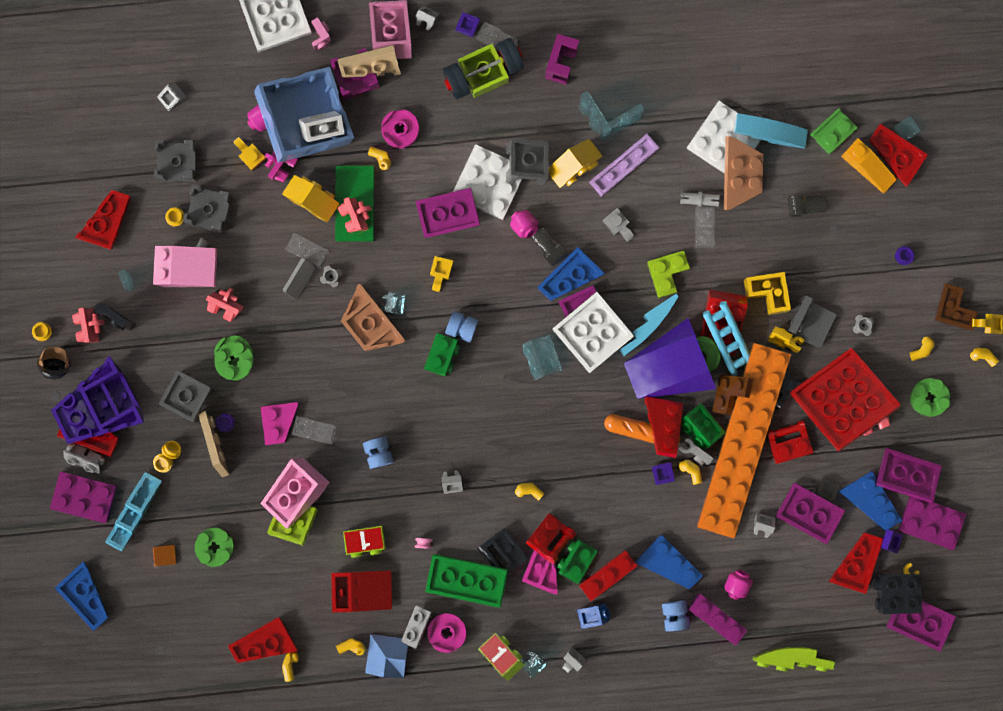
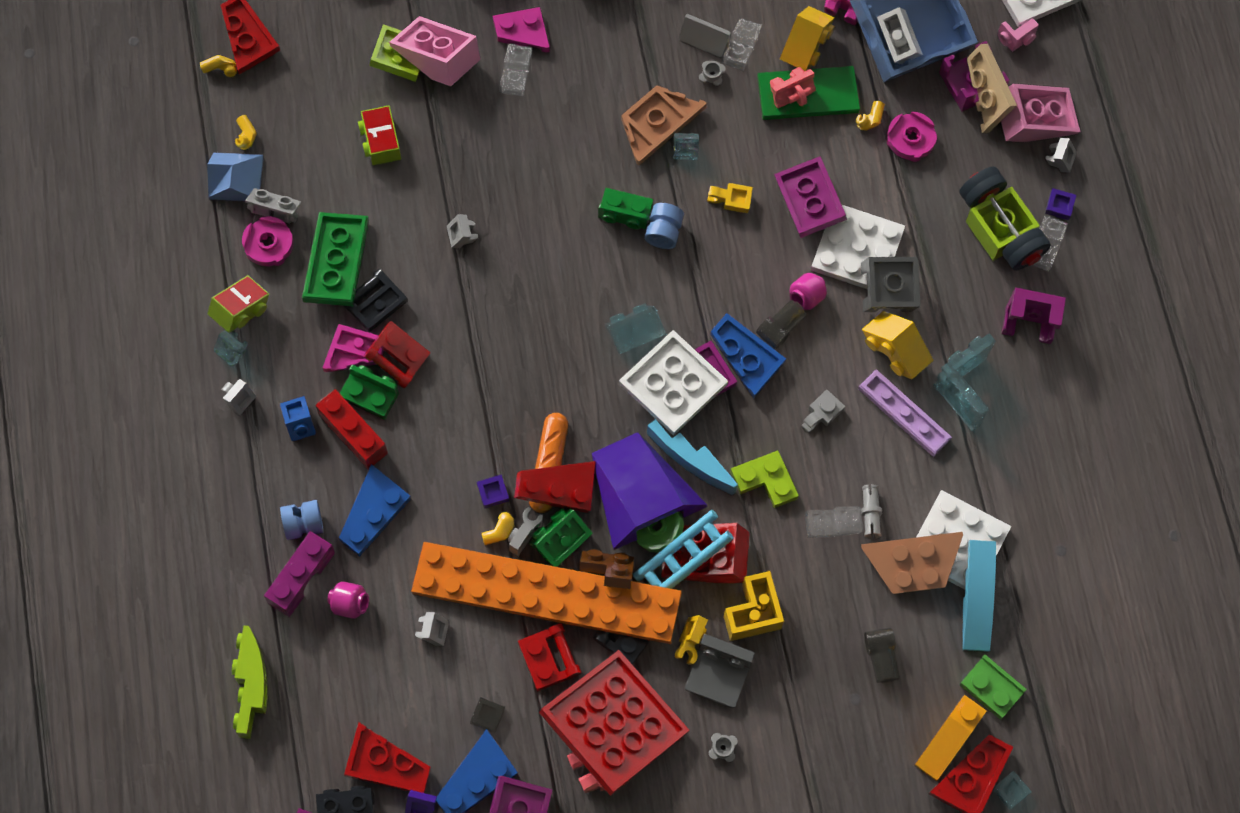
camera: 85 degrees right, 15 degrees down
(361, 591) = (315, 134): red slope -> none
(381, 459) = (492, 140): medium blue wheel -> none
(423, 543) = (381, 204): bright pink bush -> none
(529, 488) = (460, 325): yellow arm -> none
(810, 513) = (452, 690): magenta plate -> none
(904, 255) = (829, 798): dark purple plate -> none

